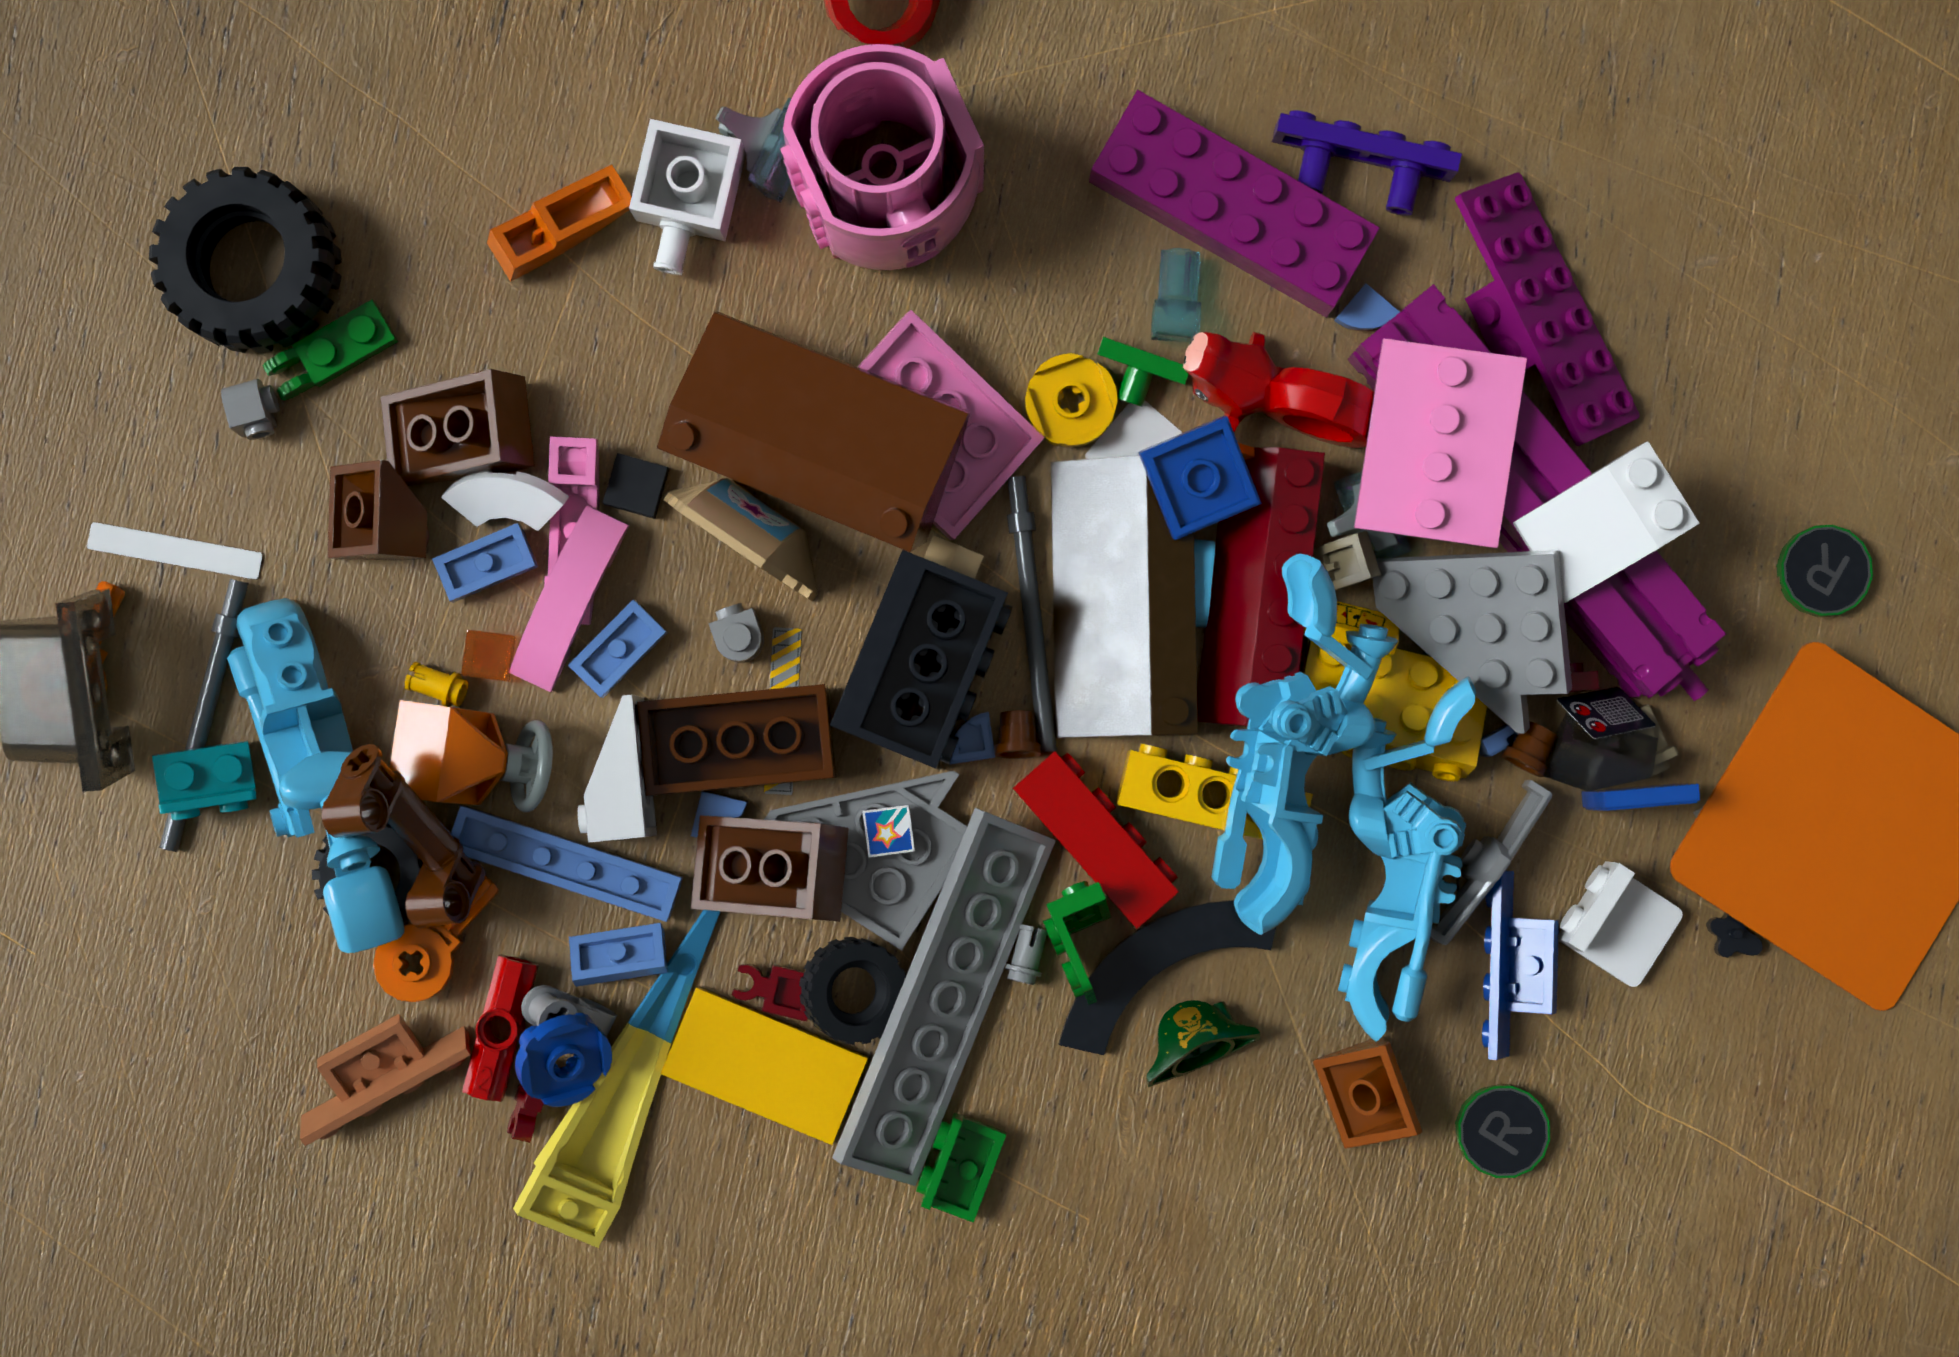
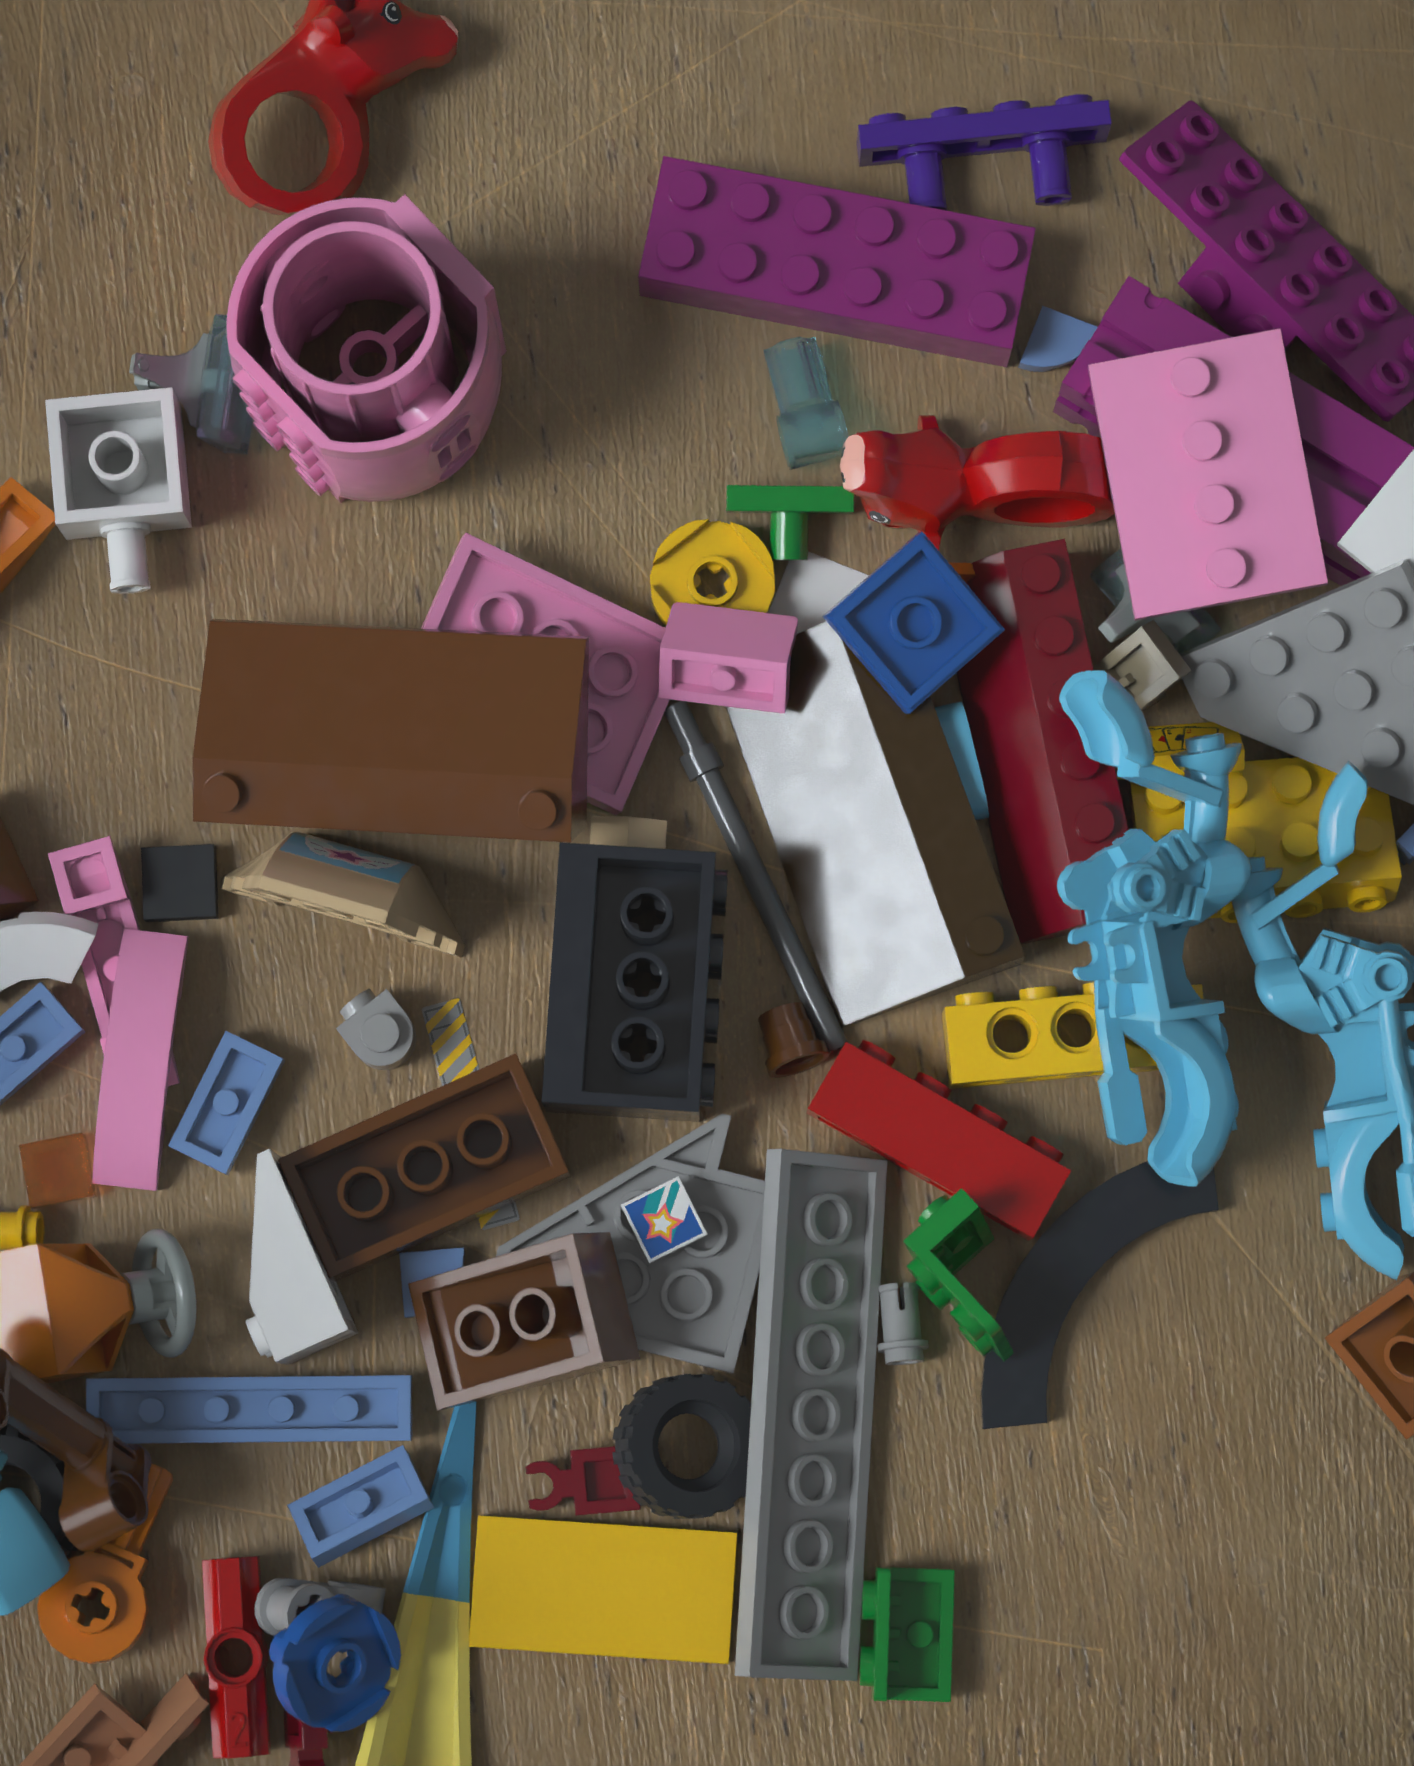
camera: 15 degrees left, 5 degrees down
(974, 740) = (736, 1067): medium blue tile -> none
(1063, 457) = (727, 657): none -> bright pink panel
(1196, 1036) = (1159, 1357): dark green hat -> none

